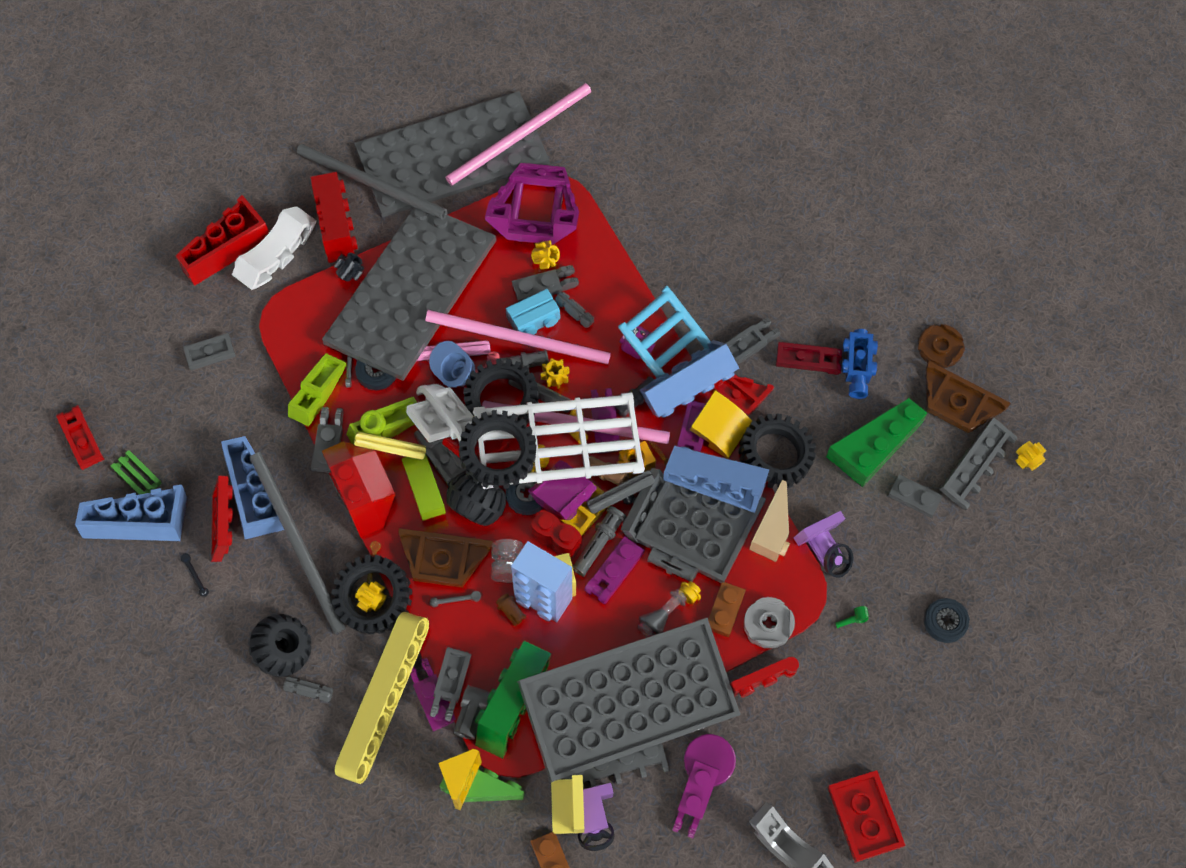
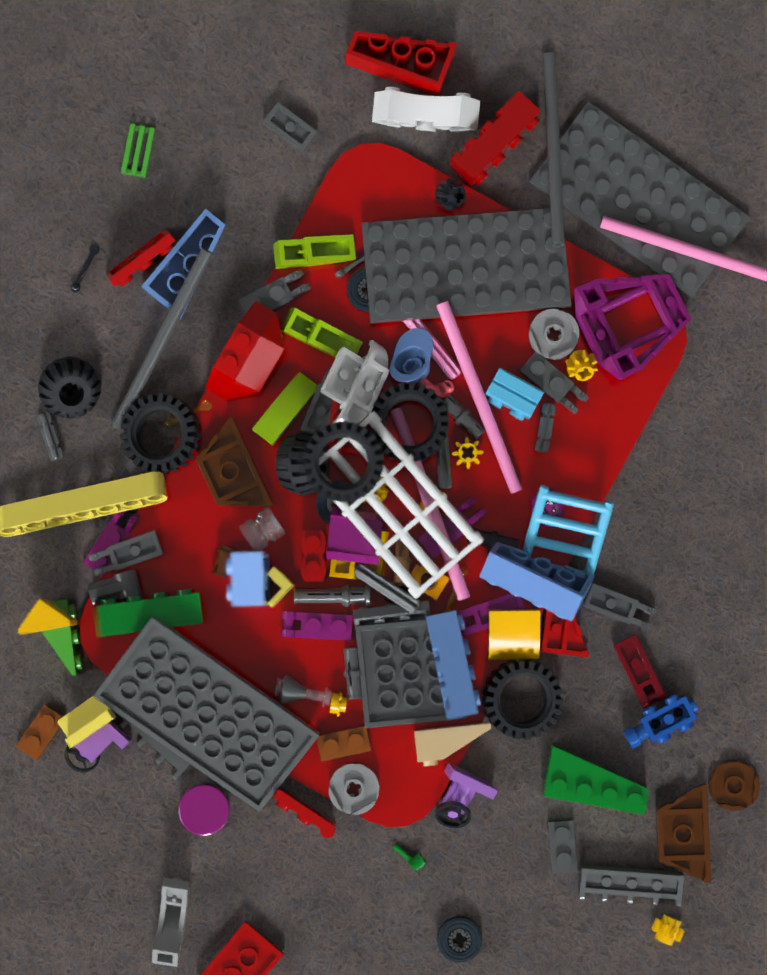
camera: 65 degrees right, 20 degrees up
(80, 438) = (138, 76): red plate -> none
(135, 517) = (98, 183): medium blue wedge -> none
(370, 596) = (159, 433): yellow gear -> none
(372, 422) = (308, 328): lime tile -> none
(390, 445) = (298, 357): light yellow axle -> none
(475, 596) = (217, 521): dark grey hinge -> none
(507, 273) = (558, 321): none -> light grey plate
(696, 795) = (166, 817): magenta hinge -> none

